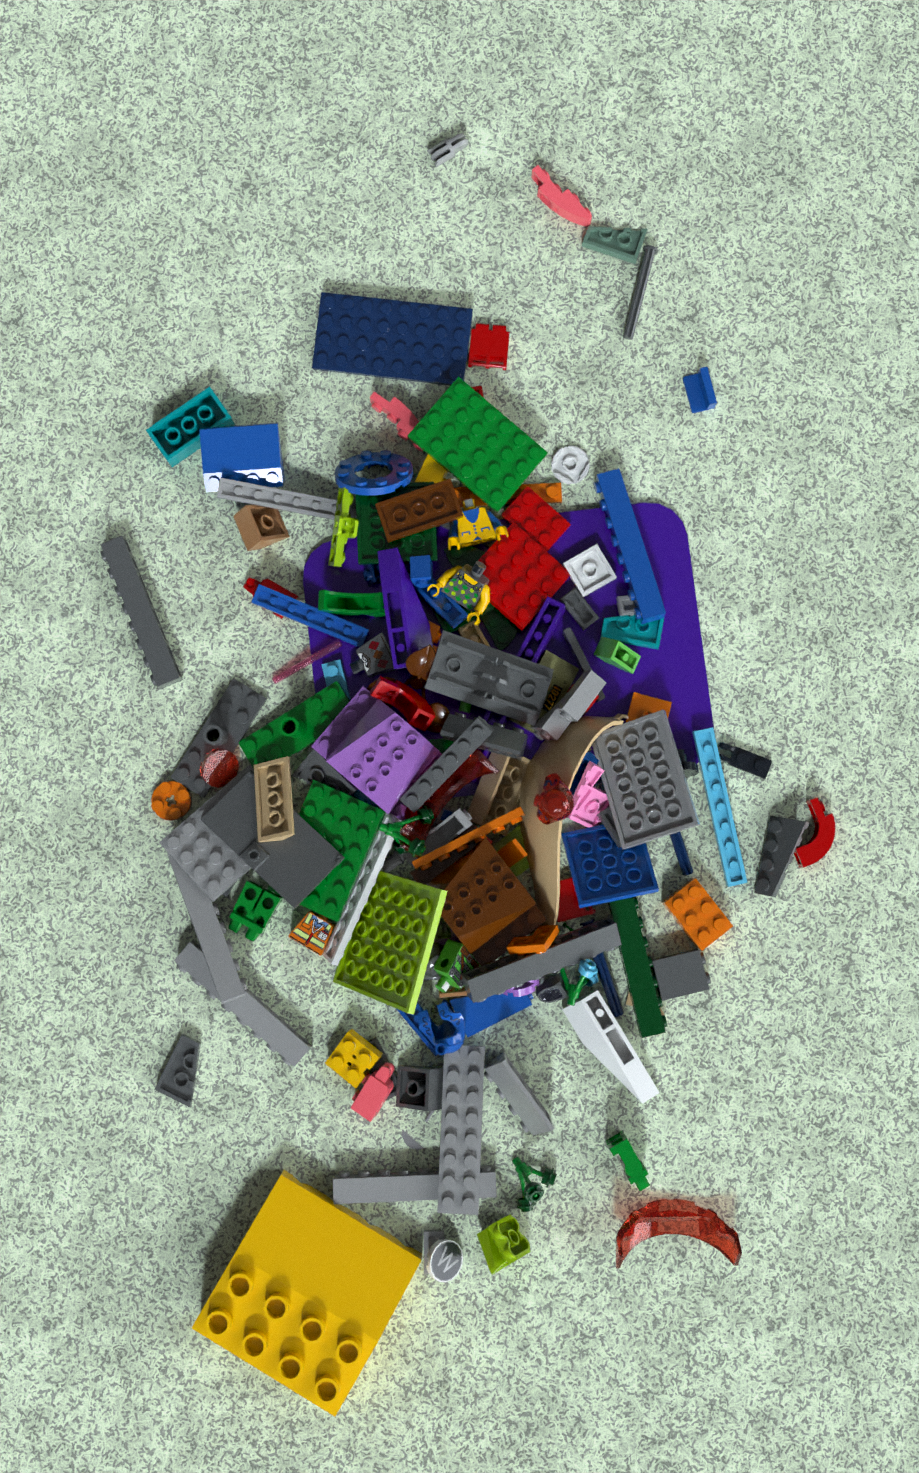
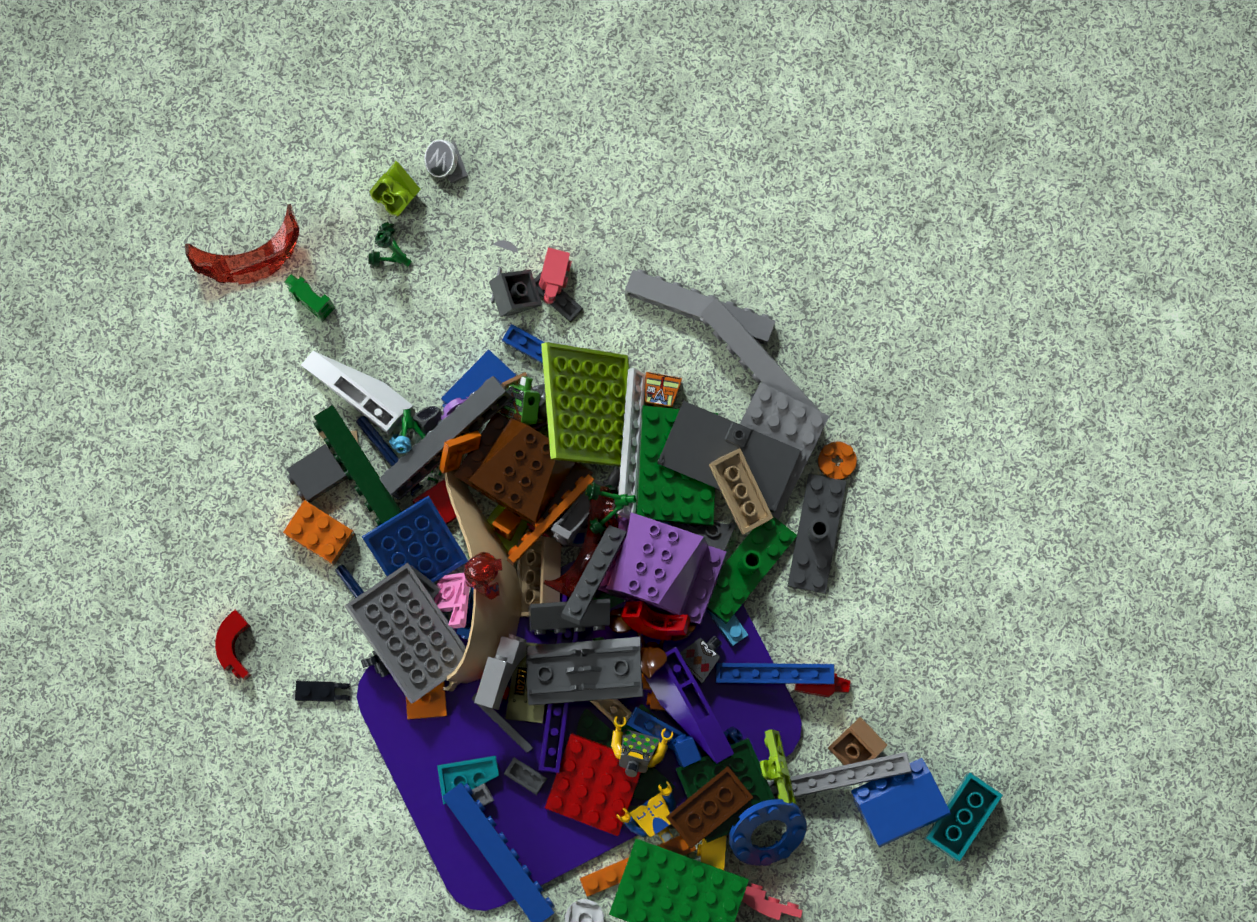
camera: 155 degrees right, 5 degrees down
(141, 612) = (936, 622): dark grey brick -> none
(180, 1072) = (731, 230): dark grey wing -> none
(219, 767) = (804, 504): clear red tile -> none
(249, 914) = (722, 384): green hips -> none
(307, 661) = (763, 632): clear pink piece -> none
(308, 1293) = (548, 92): yellow piece -> none
(351, 603) = (741, 699): green arch -> none
(353, 1058) = (583, 296): yellow piece -> none
(399, 1186) = (489, 210): light grey brick -> none
(445, 1037) = (507, 342): blue piece -> none
(461, 1131) = (466, 270): light grey plate -> none
(519, 1095) = (424, 317): light grey slope -> none
(536, 518) = (597, 849): red plate -> none
(589, 570) = (528, 817): white plate -> none
(617, 654) = (474, 744): bright green slope -> none
(719, 807) = (330, 638): medium azure plate -> none
(778, 851) = (262, 623): dark grey wing -> none

